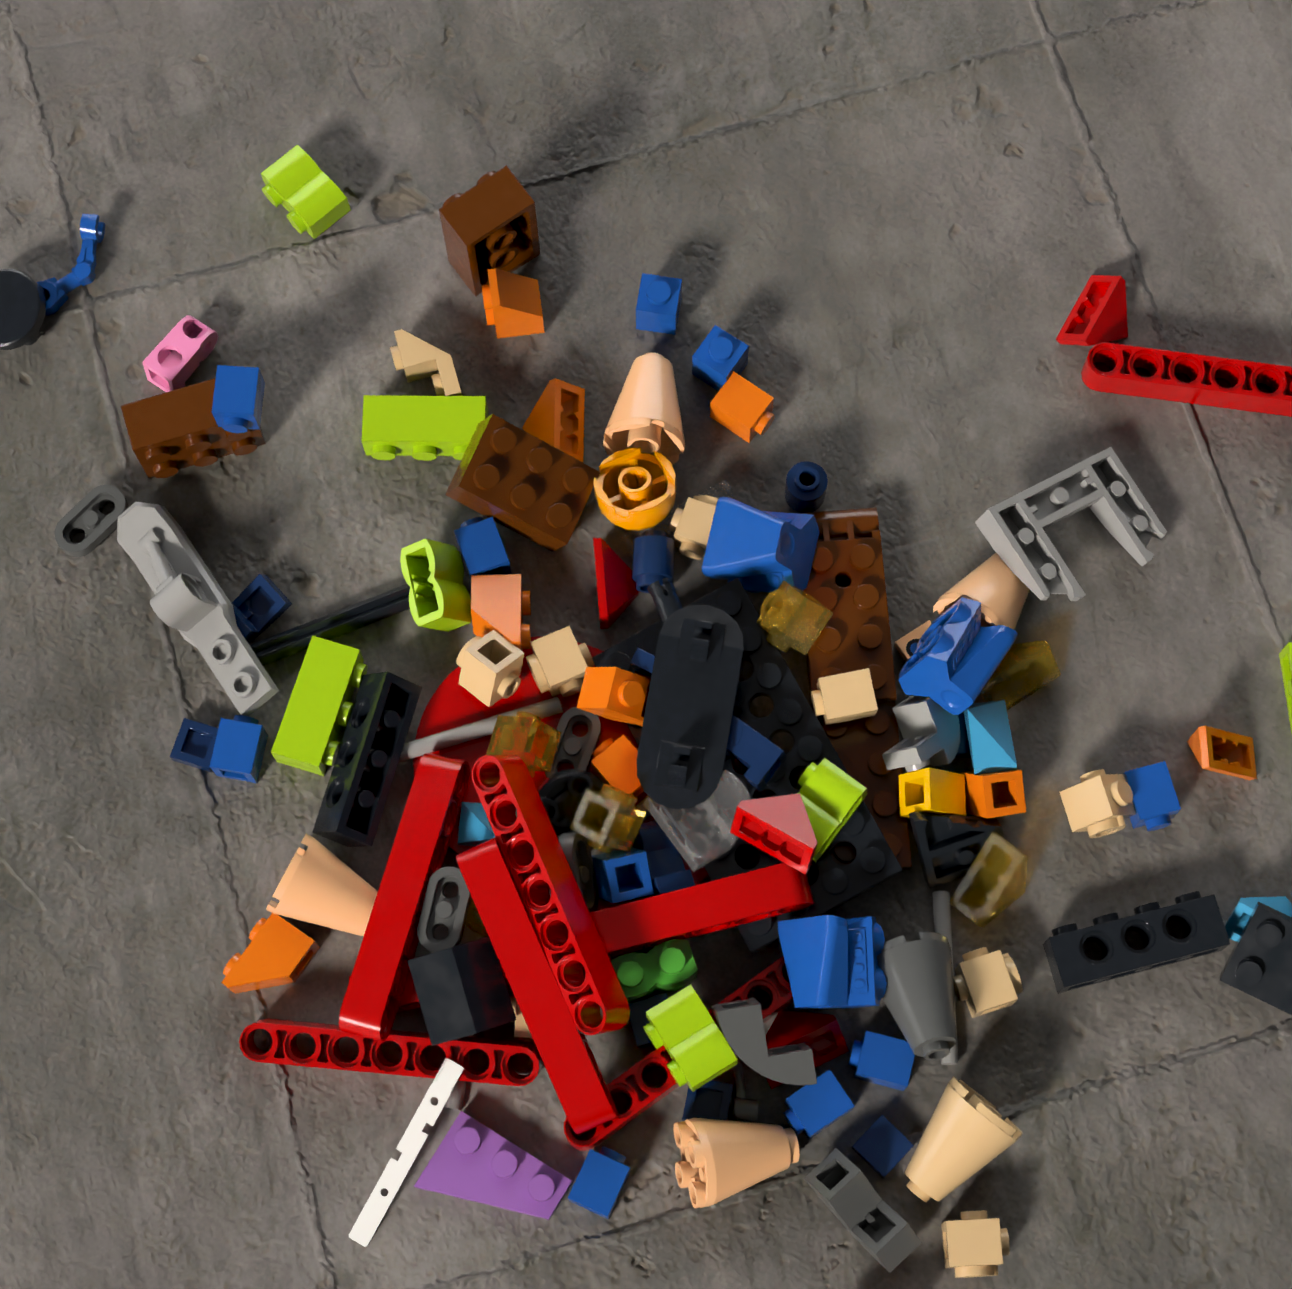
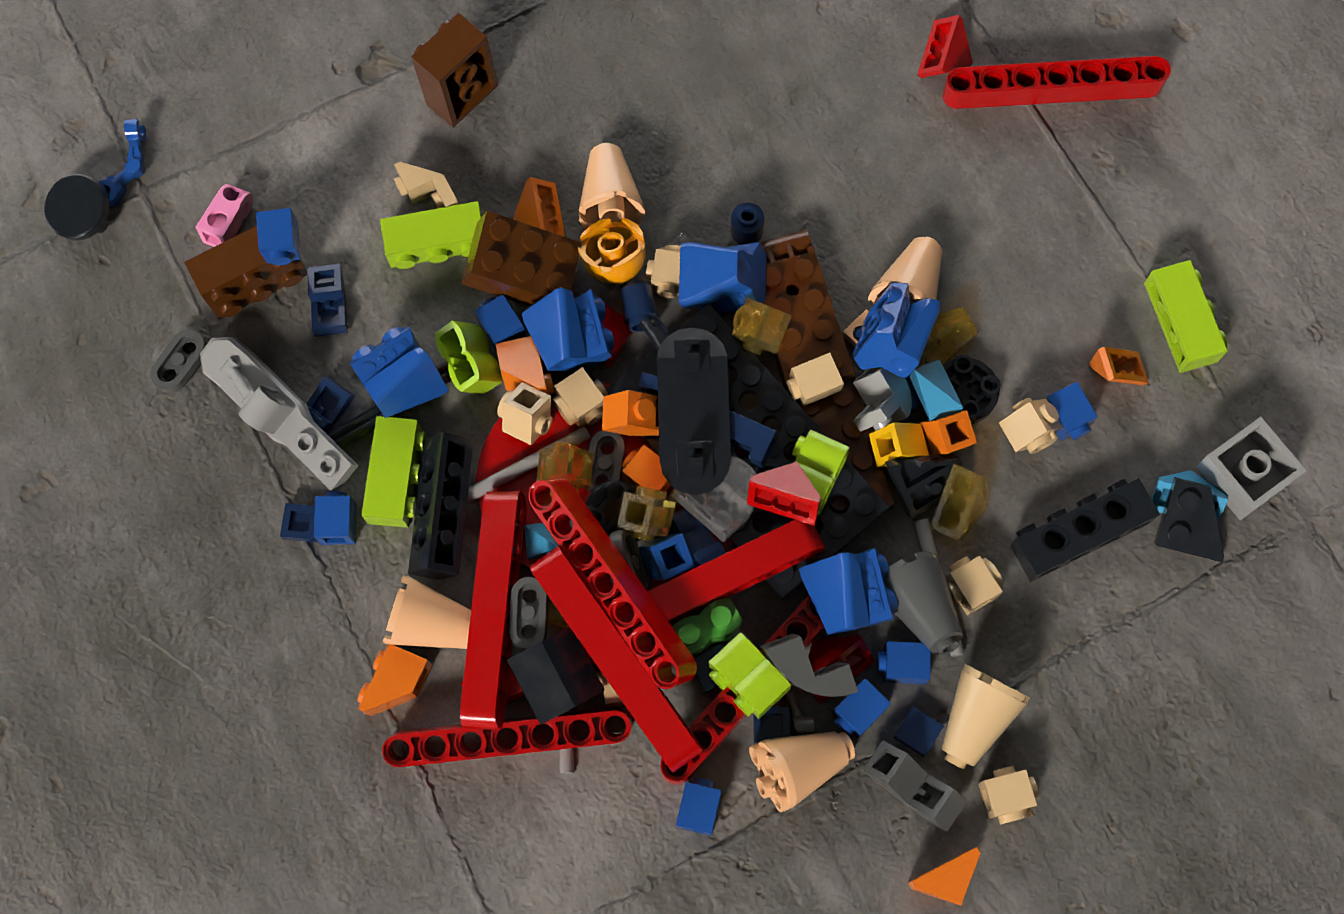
camera: 10 degrees left, 0 degrees up
(282, 480) = (327, 300): none -> dark blue slope
(305, 192) = (301, 71): lime brick -> none
(347, 588) = (398, 372): none -> blue piece
(409, 1146) = (538, 809): white piece -> none
(491, 1170) = (609, 816): medium lavender wing -> none
(512, 304) = (484, 126): orange slope -> none
(563, 579) = (569, 331): none -> blue piece
(658, 303) = (600, 104): blue brick -> none
(719, 358) = (658, 138): blue brick -> none
(742, 408) = (683, 172): orange brick -> none
(1039, 741) = (974, 385): none -> black tile
(1098, 482) = (976, 177): light grey wedge -> none

